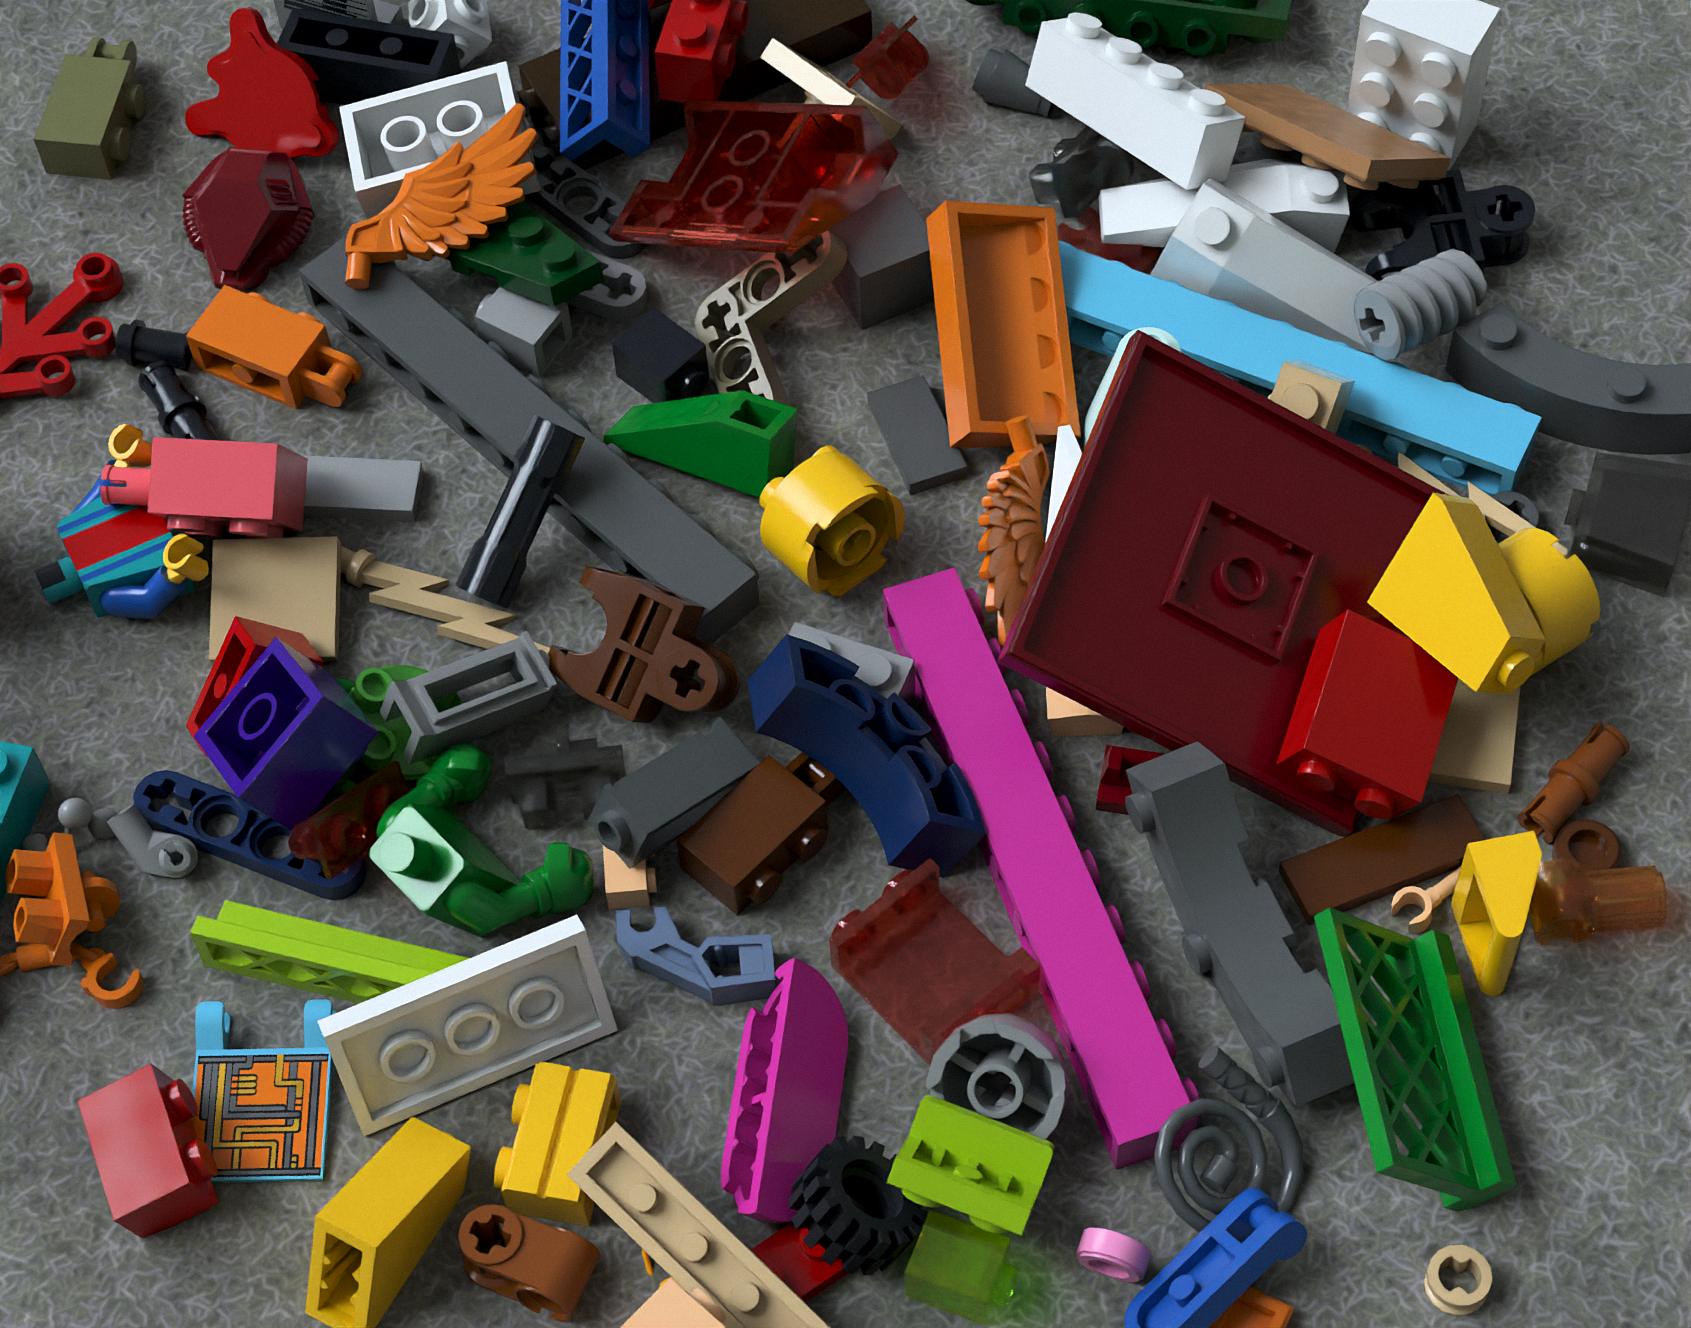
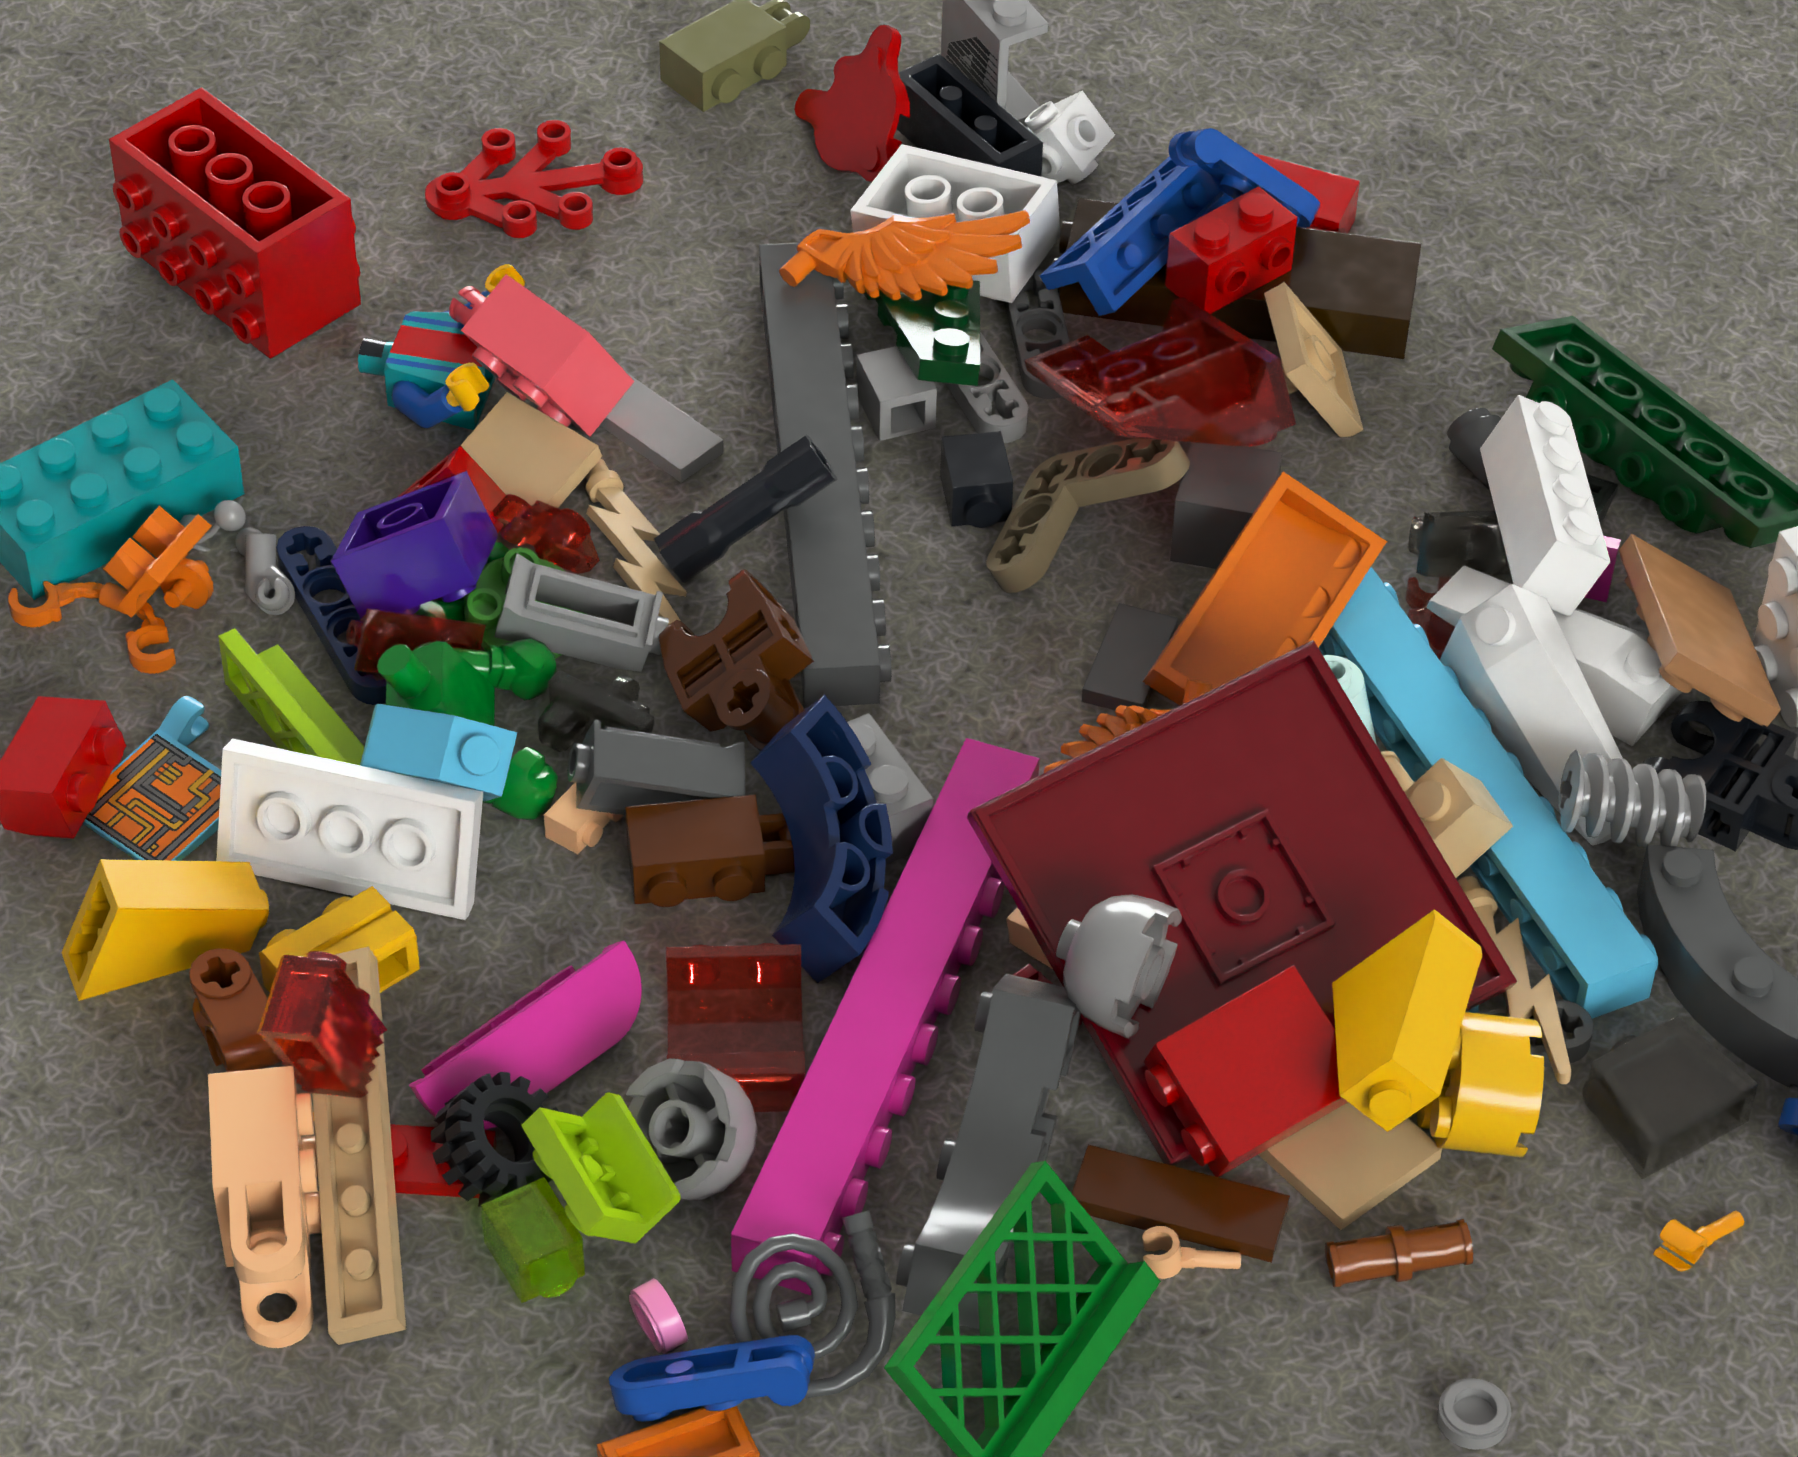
camera: 35 degrees right, 10 degrees down
(151, 345) = (603, 234): black pin -> none
(177, 408) = (585, 296): black pin -> none
(246, 215) = (775, 170): dark red helmet -> none
(270, 350) = (689, 292): orange brick -> none
(367, 637) = (555, 533): none -> clear red plate
(503, 904) = (439, 748): none -> medium azure slope
(667, 1222) = (322, 1025): none -> clear red brick
(688, 967) = (550, 893): sand blue piece -> none
(717, 437) = (961, 560): green slope -> none
(831, 506) = (978, 666): yellow brick -> none
(891, 61) = (1391, 368): clear red hinge -> none
(1222, 698) = (1118, 959): none -> light grey cylinder
(1494, 903) = (1217, 1281): yellow tile -> none
(1582, 902) = (1300, 1335): clear orange piece -> none
(1588, 844) = (1356, 1313): reddish brown tile -> none

